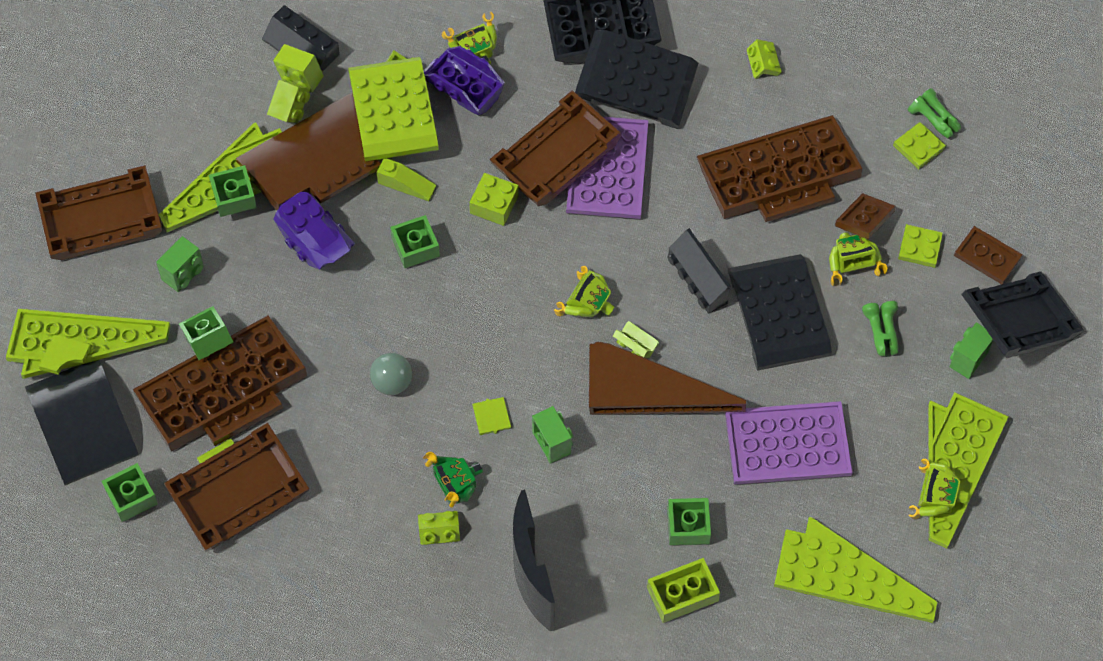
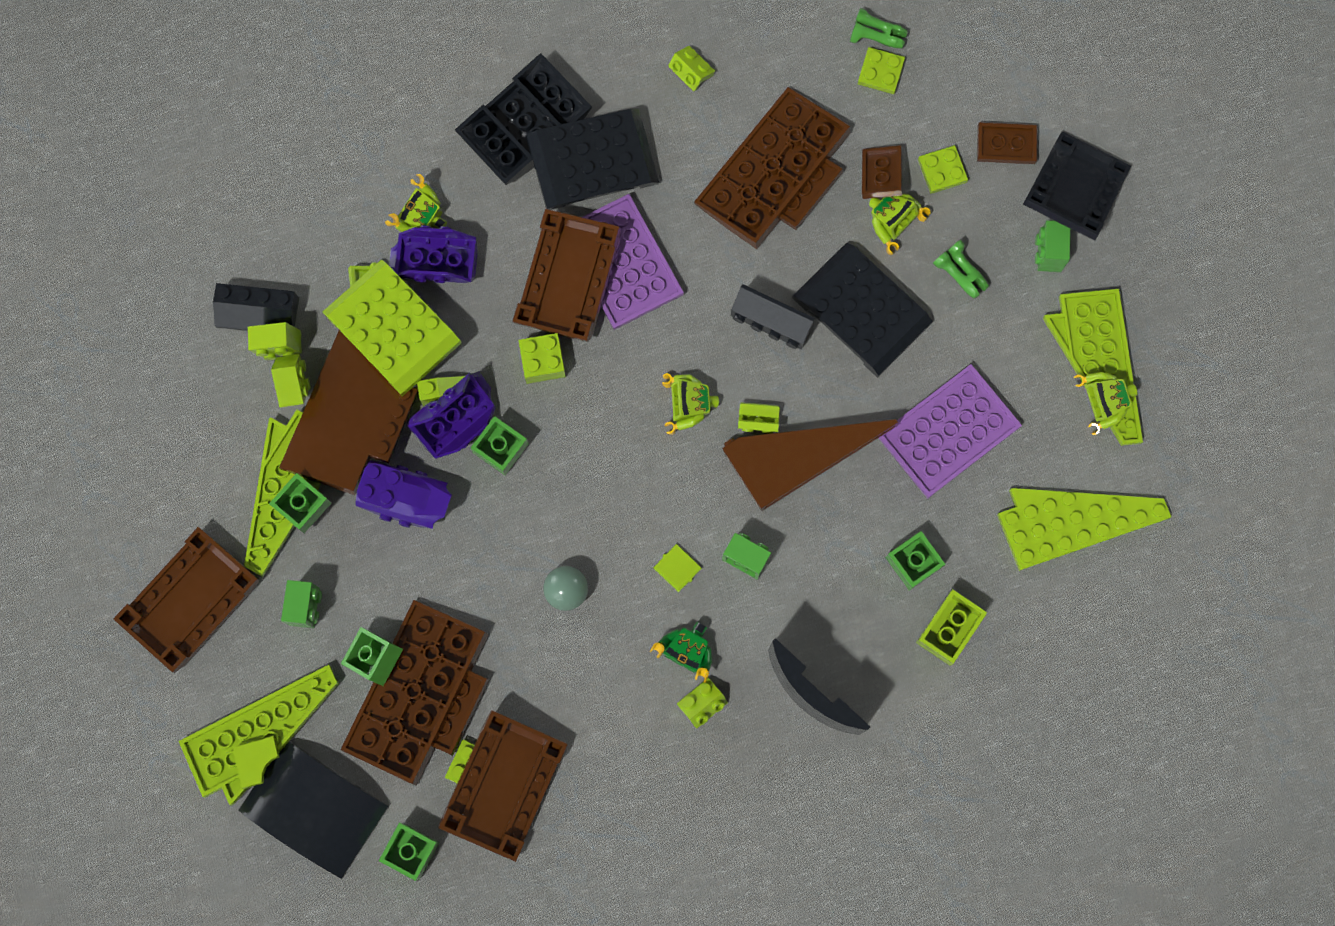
camera: 30 degrees left, 15 degrees up
(395, 197) = (455, 417): none -> dark purple slope

